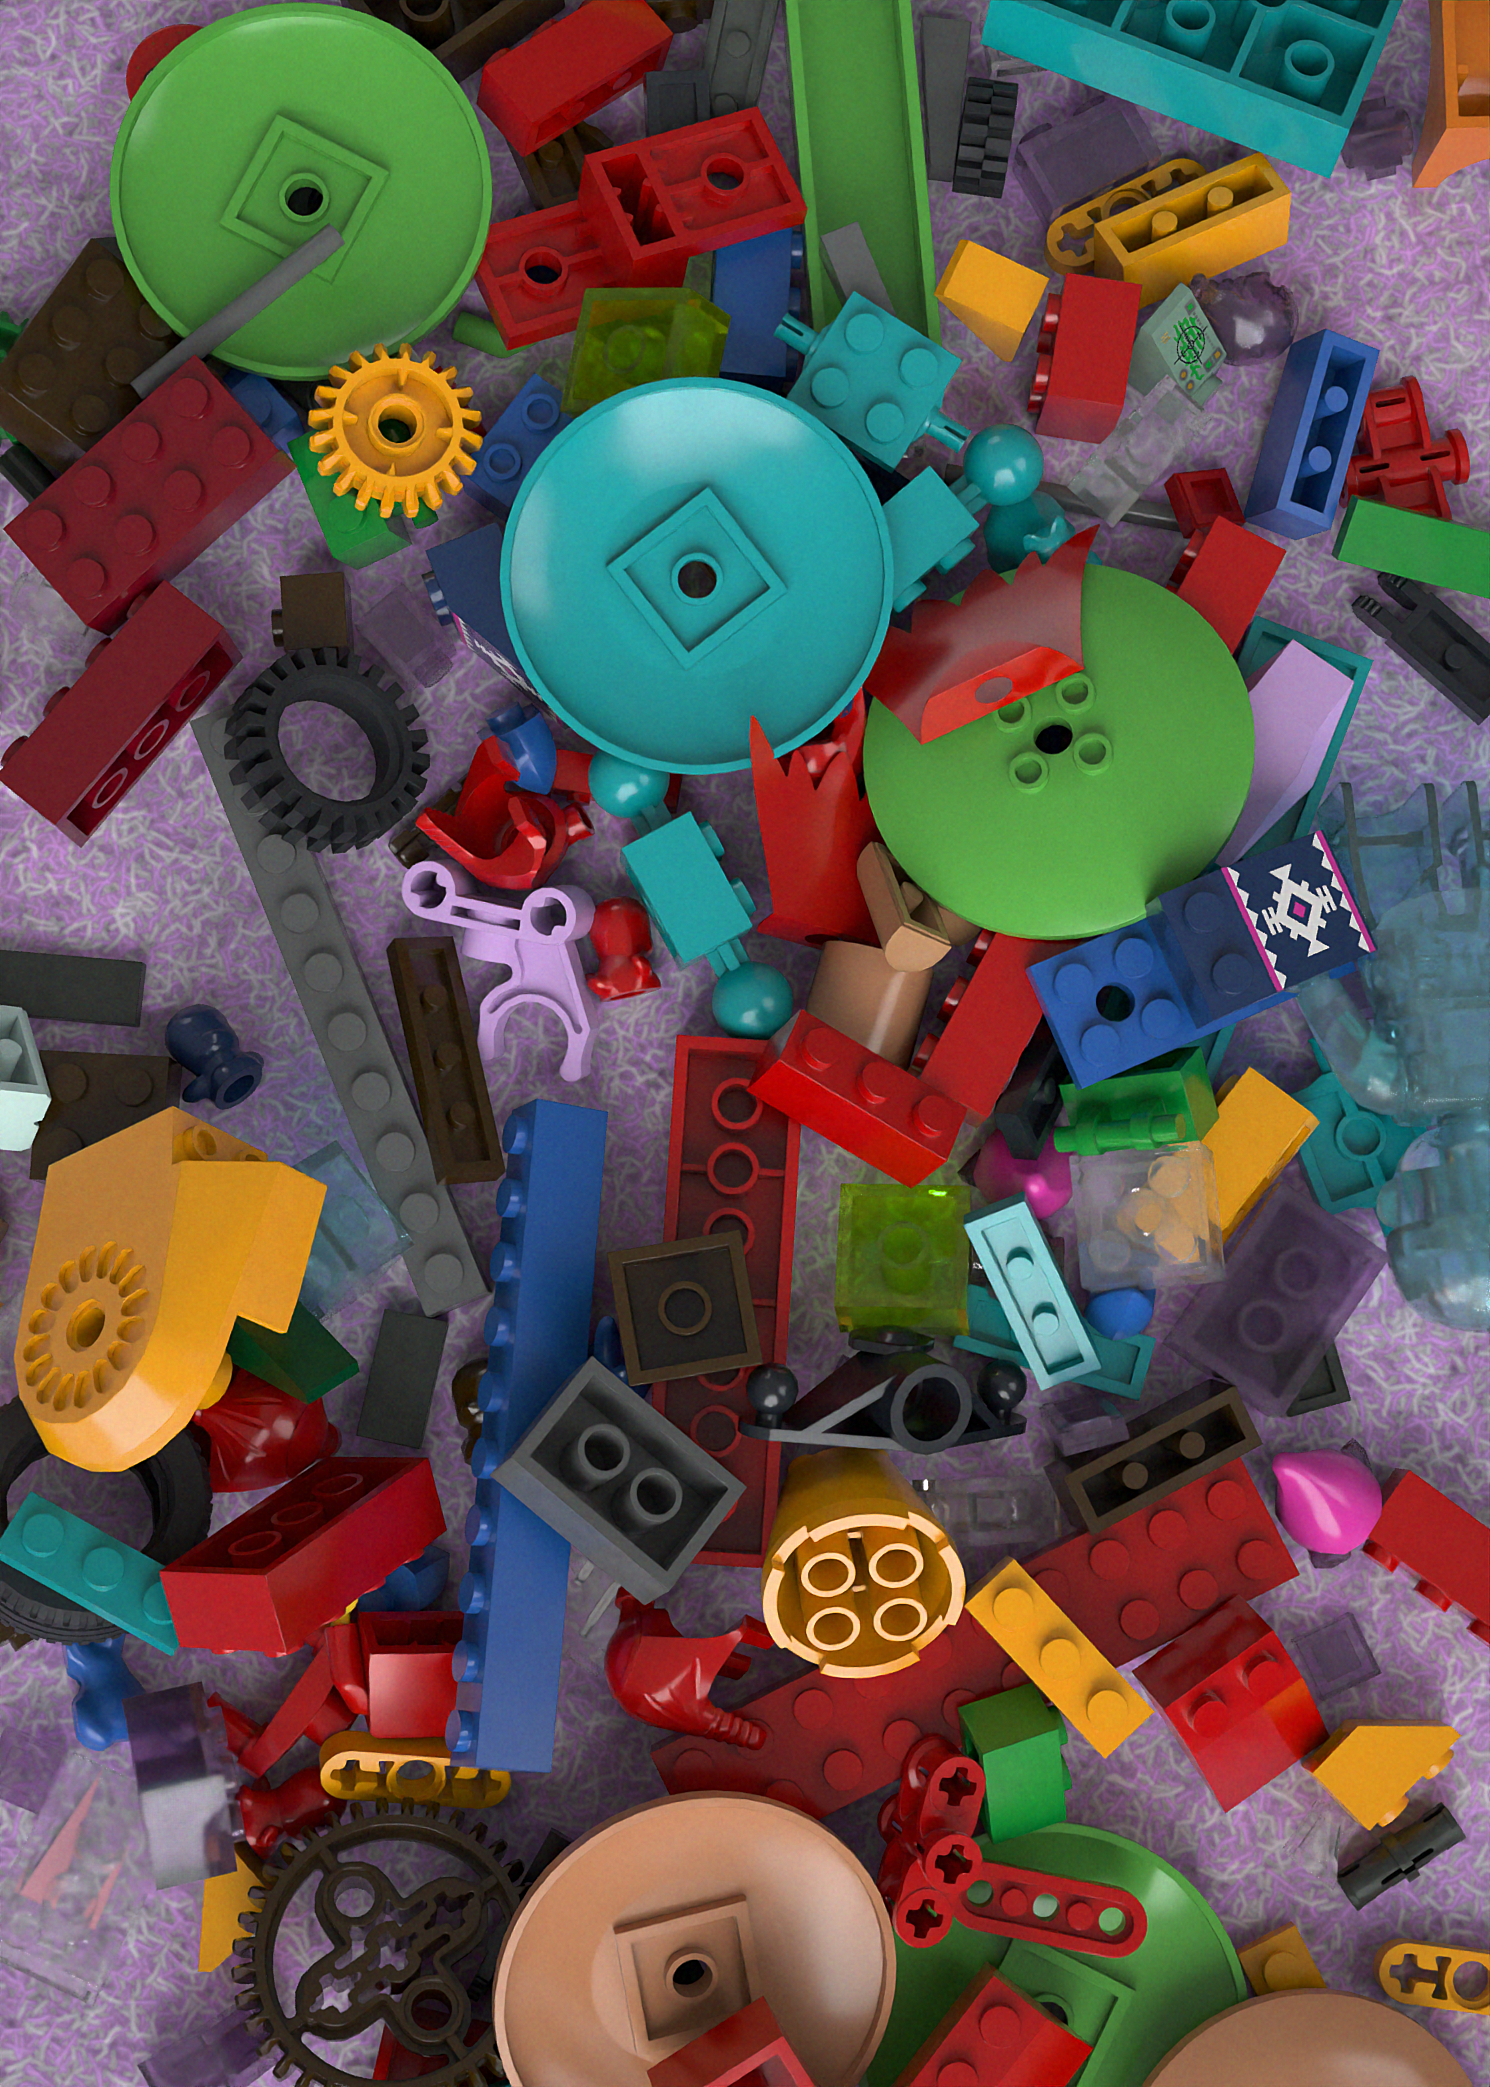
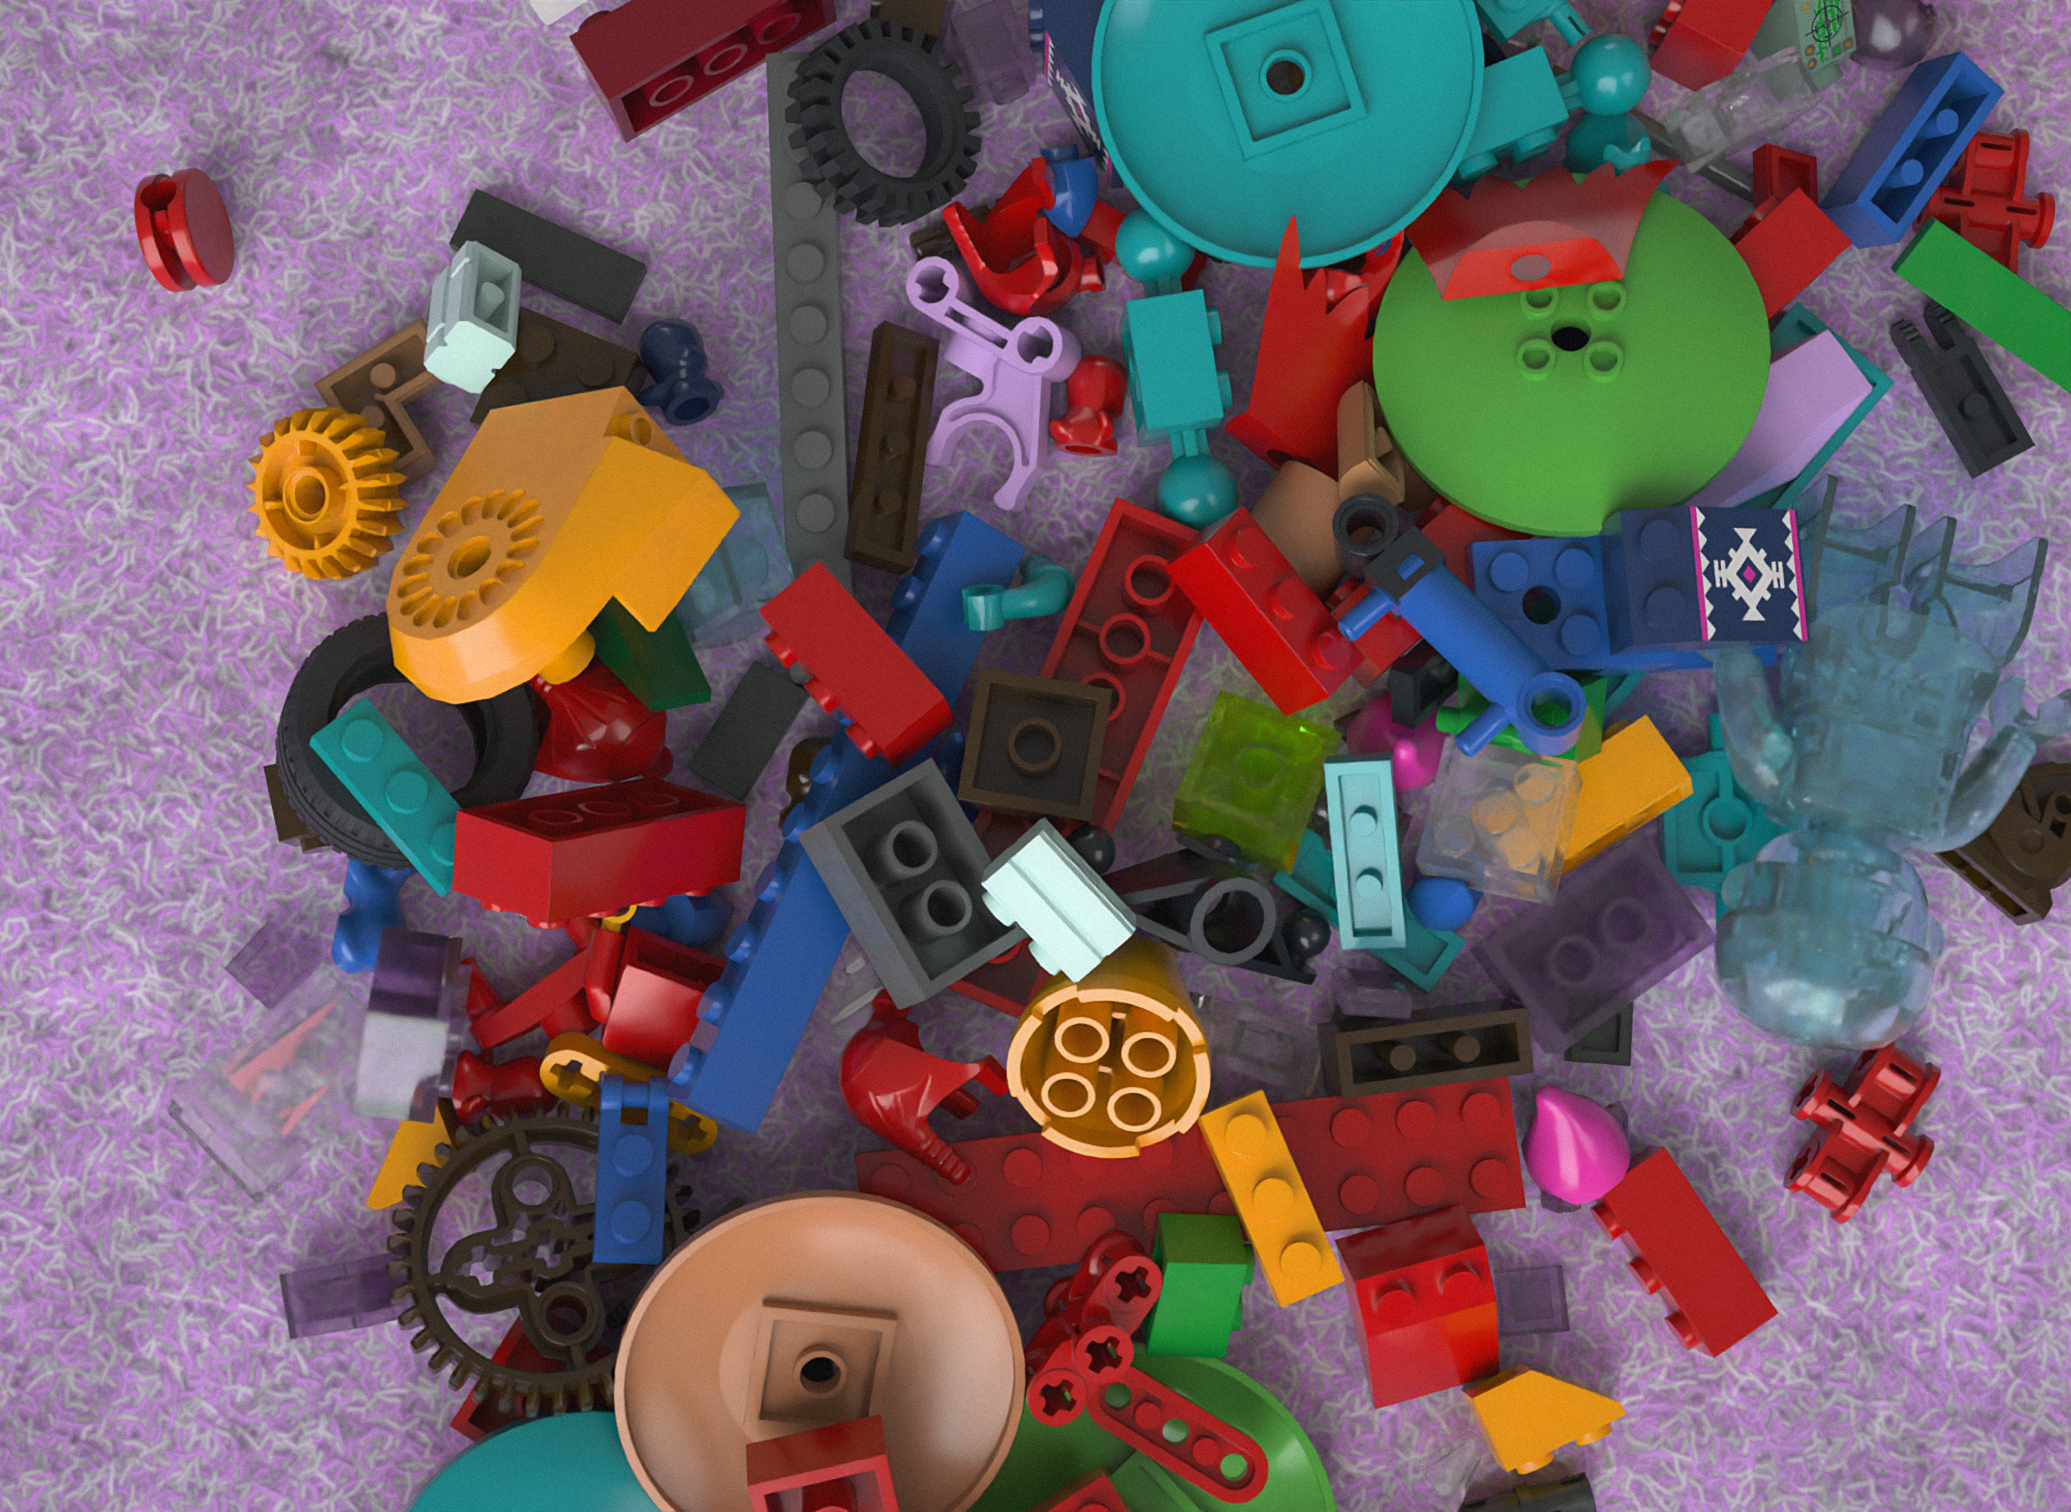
camera: 20 degrees right, 0 degrees up
(443, 1849) = (630, 1172): none -> blue plate
(486, 1293) = (854, 667): none -> red brick
(641, 1149) = (1044, 591): none -> teal piece
(759, 1453) = (1057, 902): none -> light aqua brick
(990, 1027) = (1412, 582): none -> blue piece

